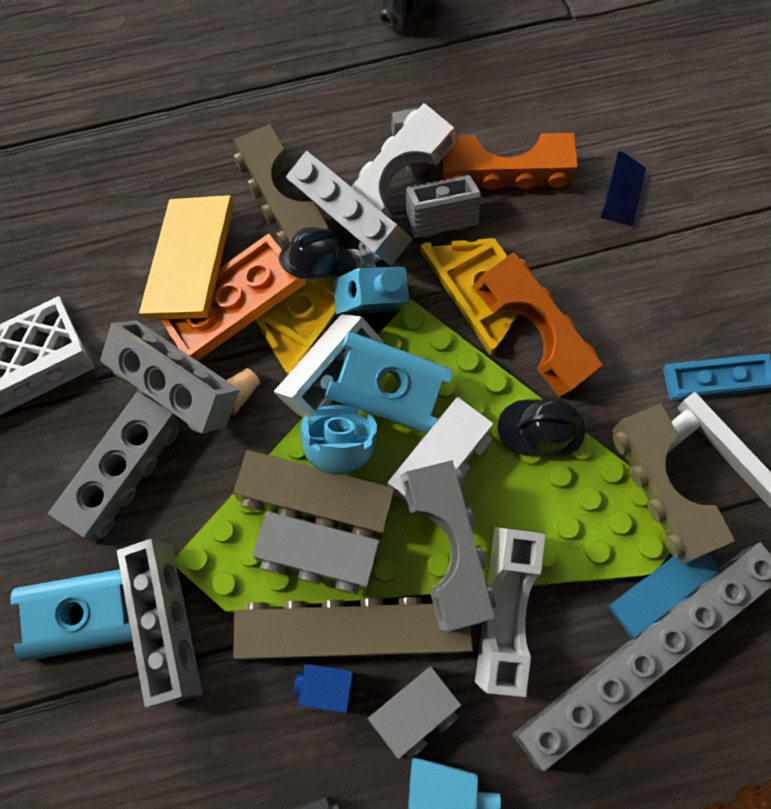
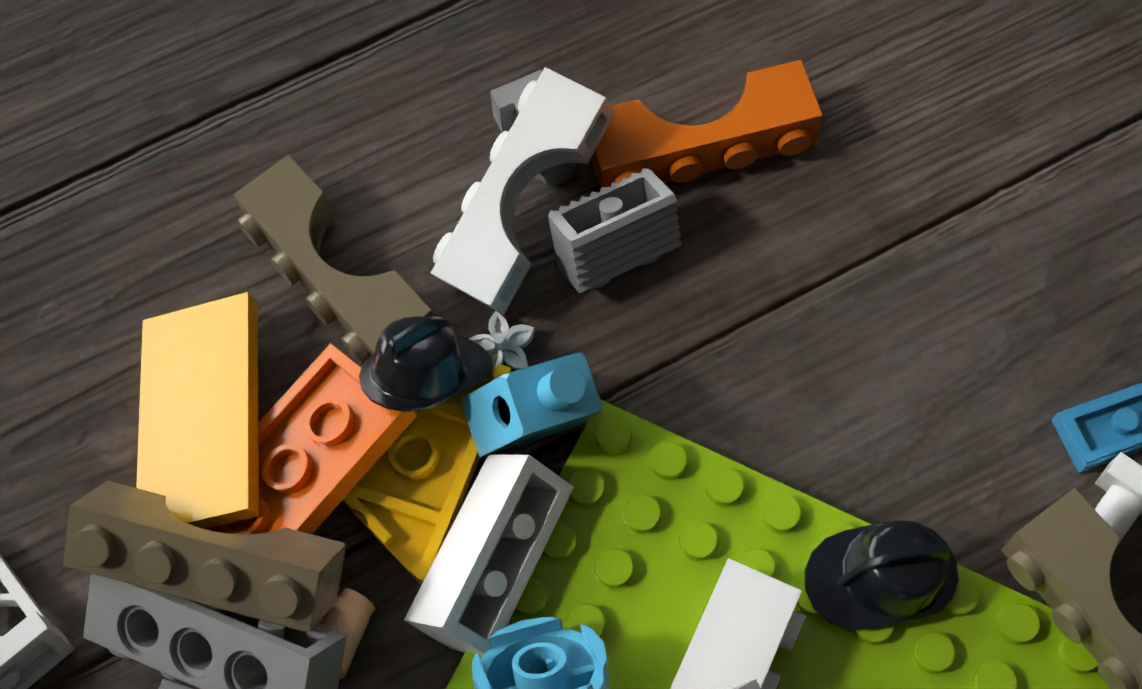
camera: 10 degrees left, 5 degrees down
(201, 347) = (265, 576): none -> dark tan arch
(349, 208) = (459, 270): arch -> none
(416, 382) = (652, 555): medium azure piece -> none
(458, 269) = (713, 349): yellow wing -> none
(566, 356) = (888, 440): orange arch -> none
(623, 190) = (904, 135): clear blue slope -> none

